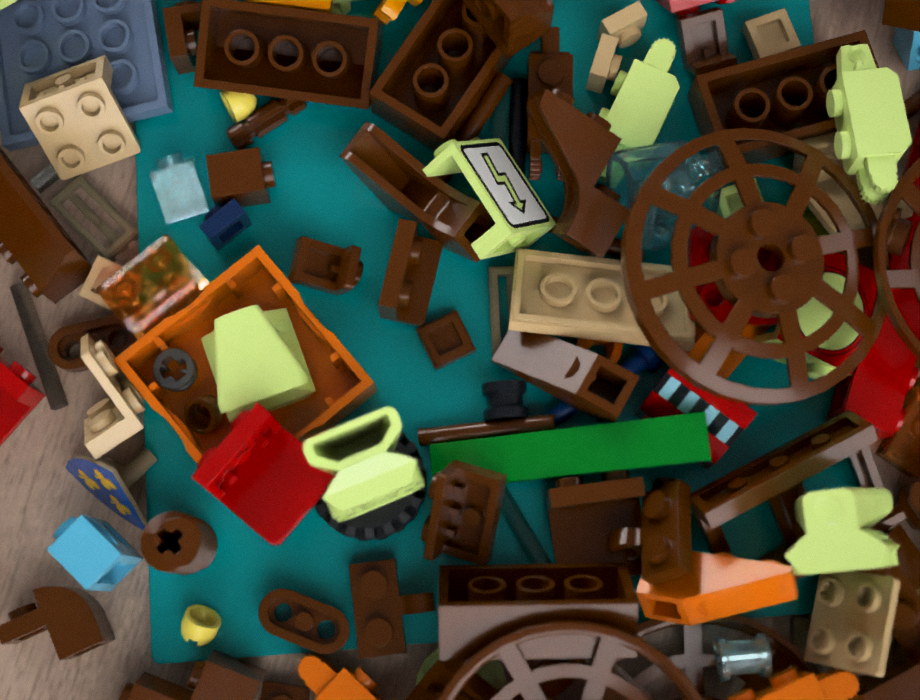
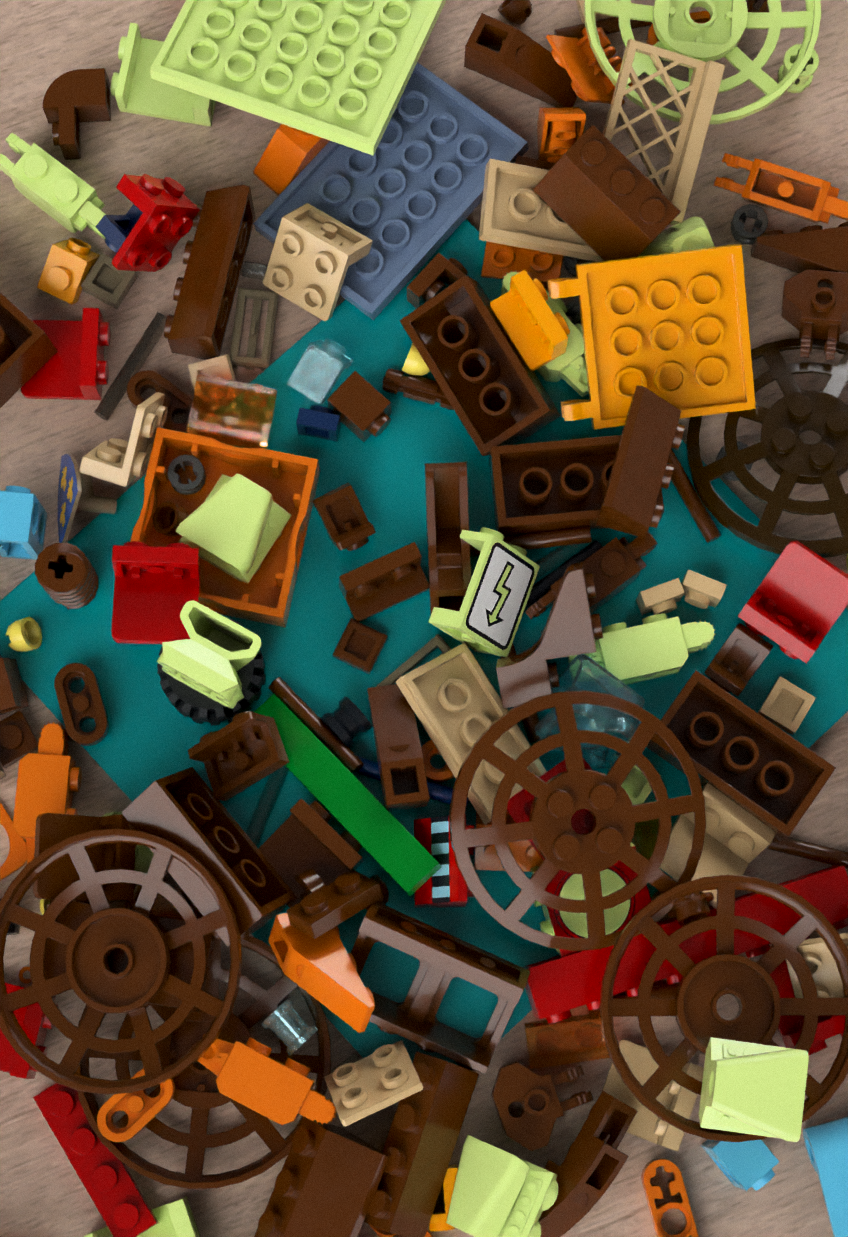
camera: 50 degrees right, 0 degrees up
(381, 608) = (131, 751): reddish brown plate -> none
(841, 532) = (425, 1023): yellowish green piece -> none
(868, 121) = (756, 820): yellowish green hinge -> none

